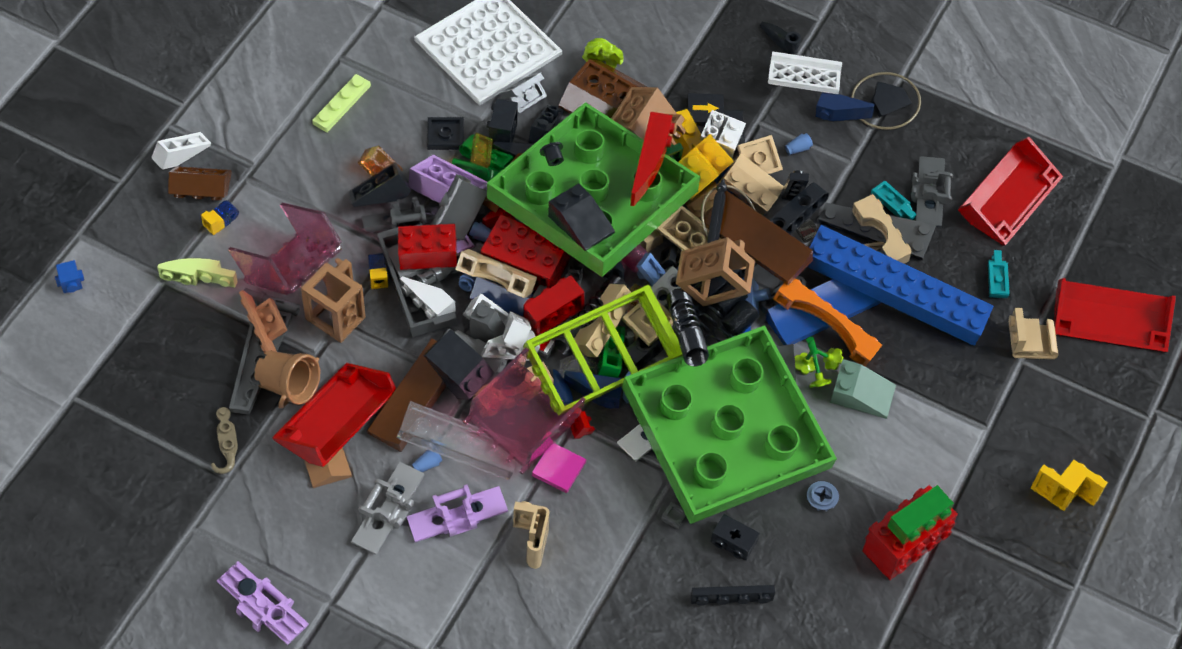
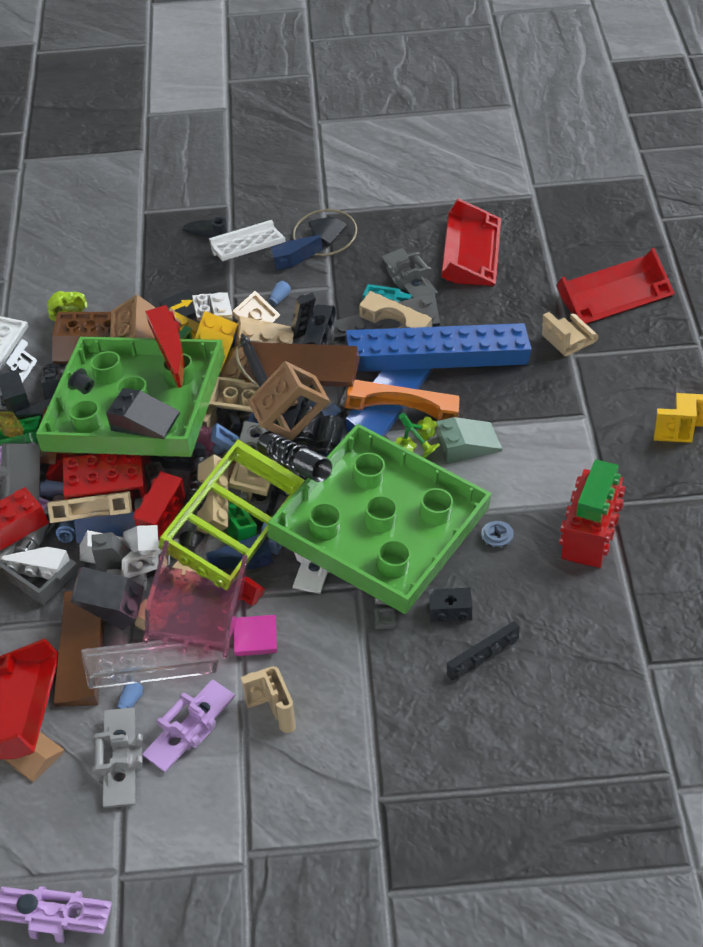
camera: 25 degrees left, 10 degrees down
(998, 276) = (508, 306): teal hinge -> none

